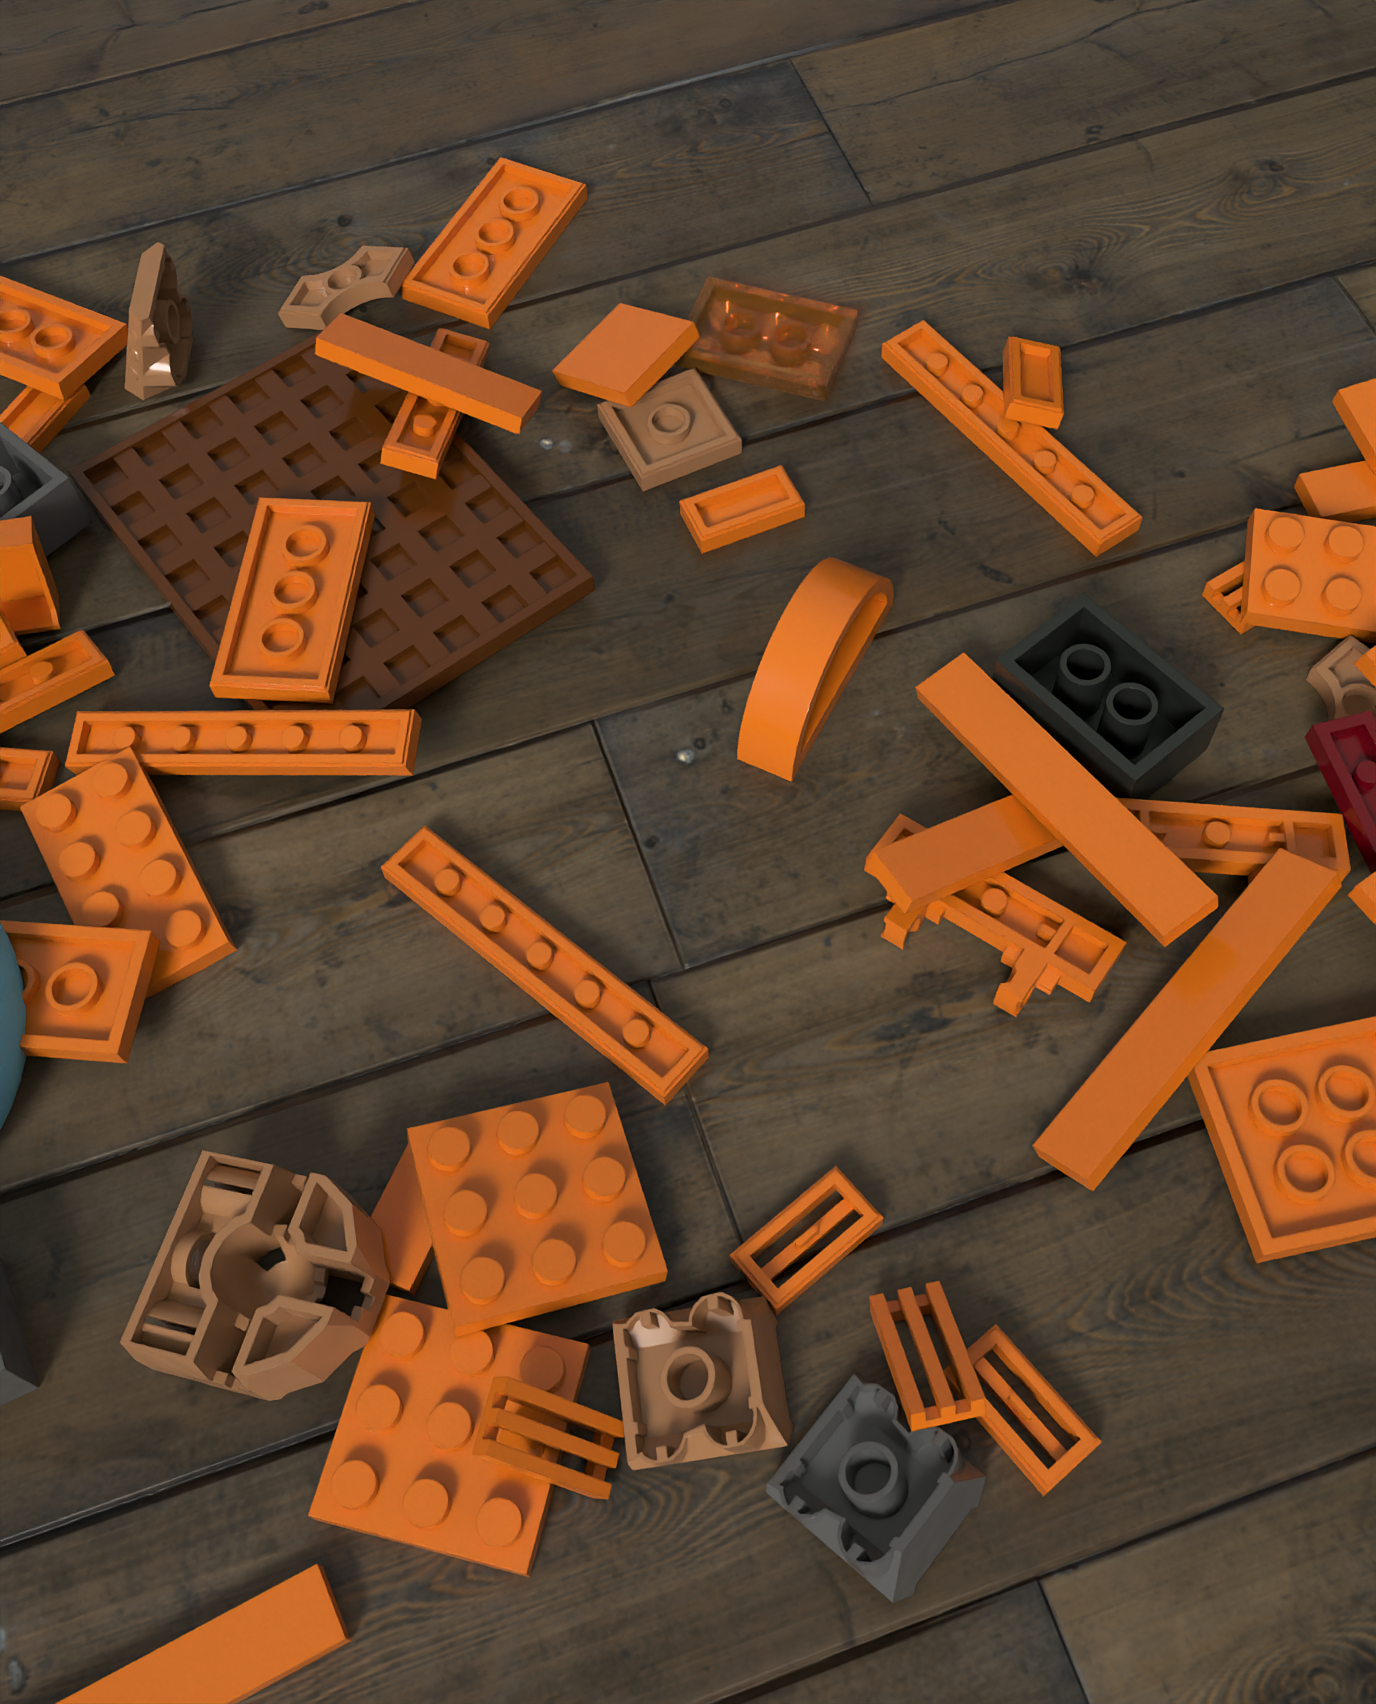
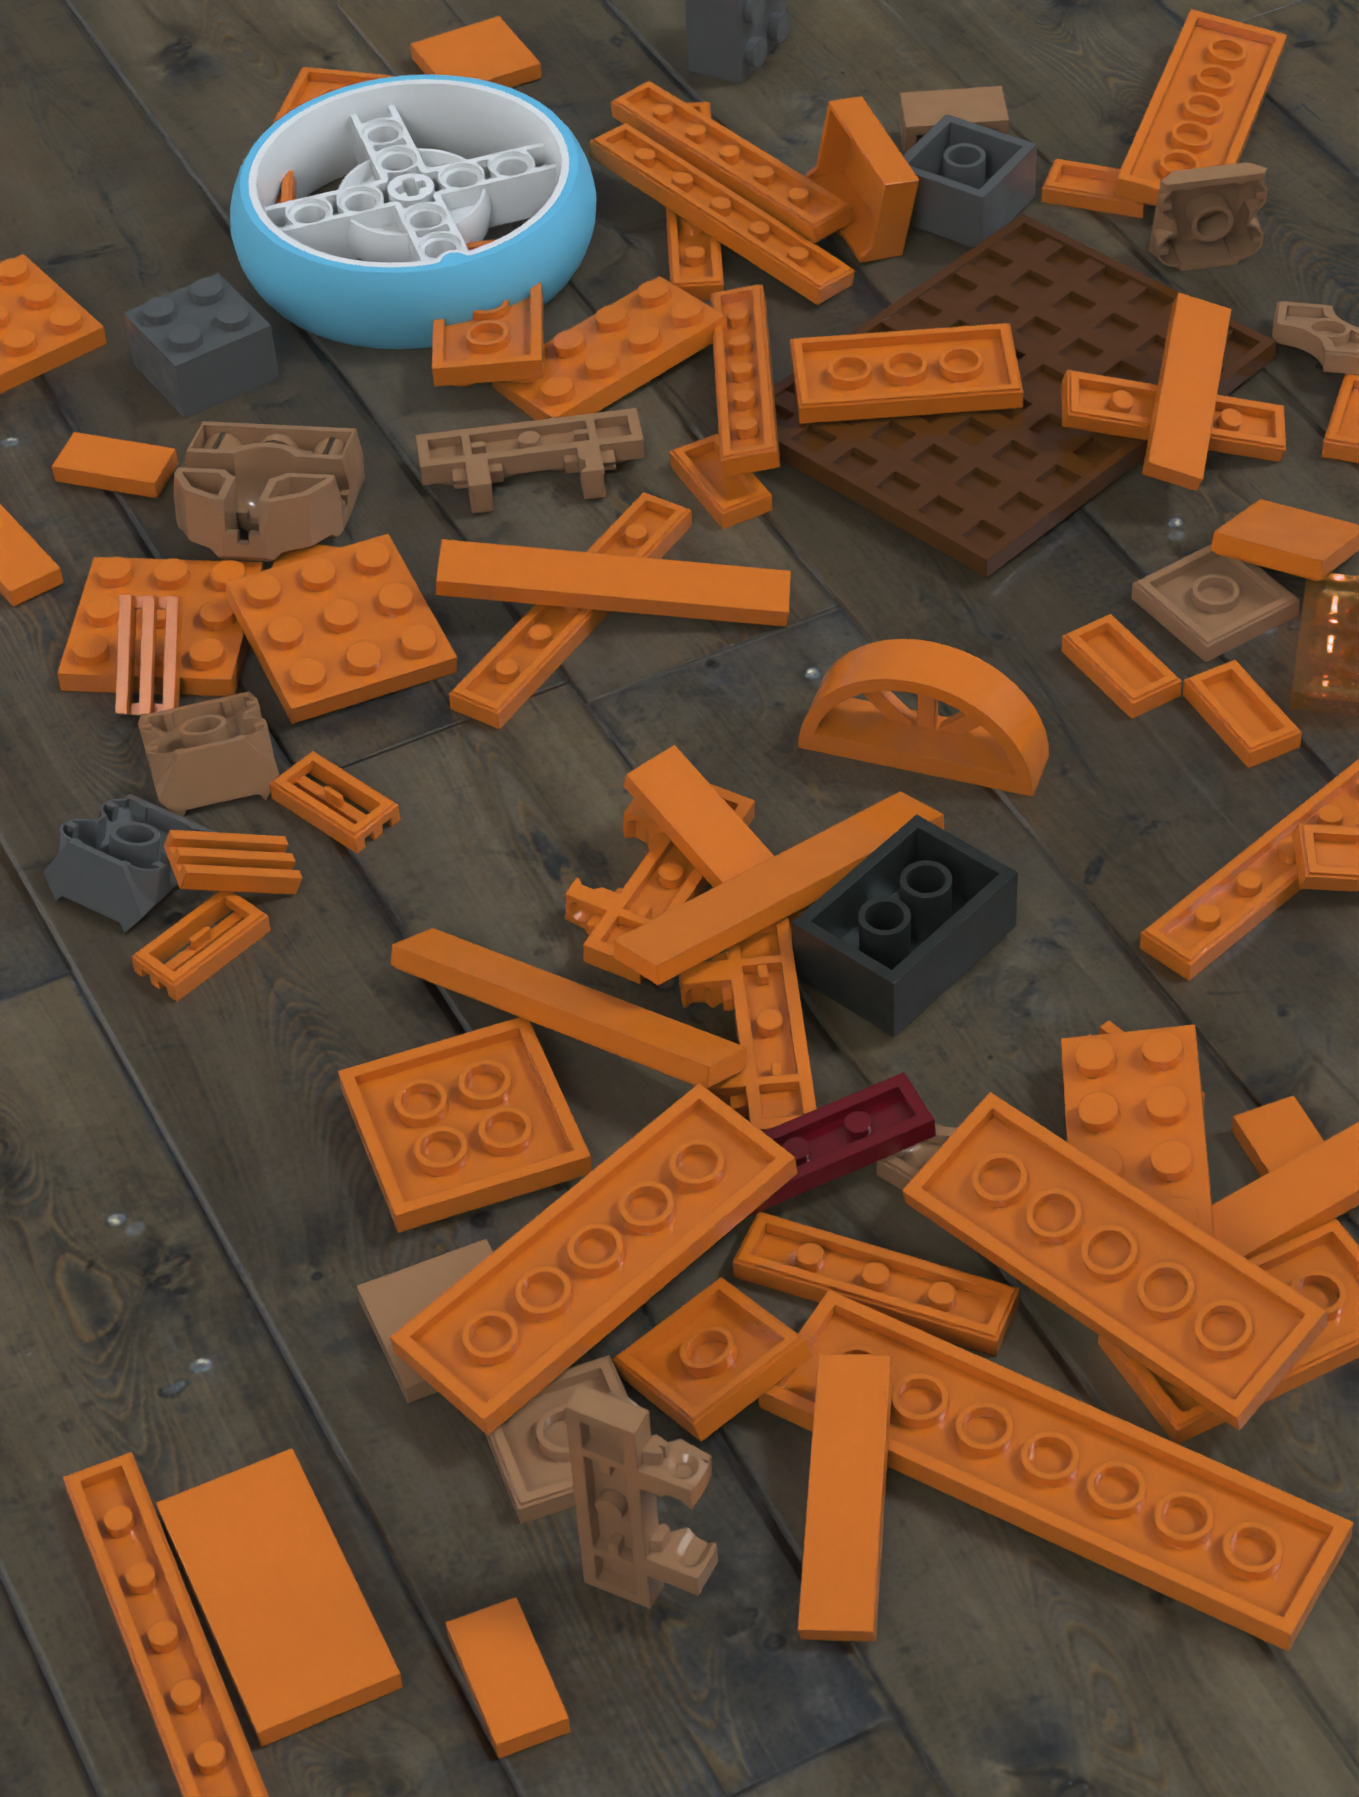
camera: 80 degrees right, 15 degrees down
(114, 1484) = (115, 465): none -> orange tile
(263, 1016) = (569, 443): none -> medium nougat hinge
(364, 803) = (725, 498): none -> orange tile
(535, 918) = (613, 583): none -> orange tile
(823, 435) = (1242, 713): none -> orange tile

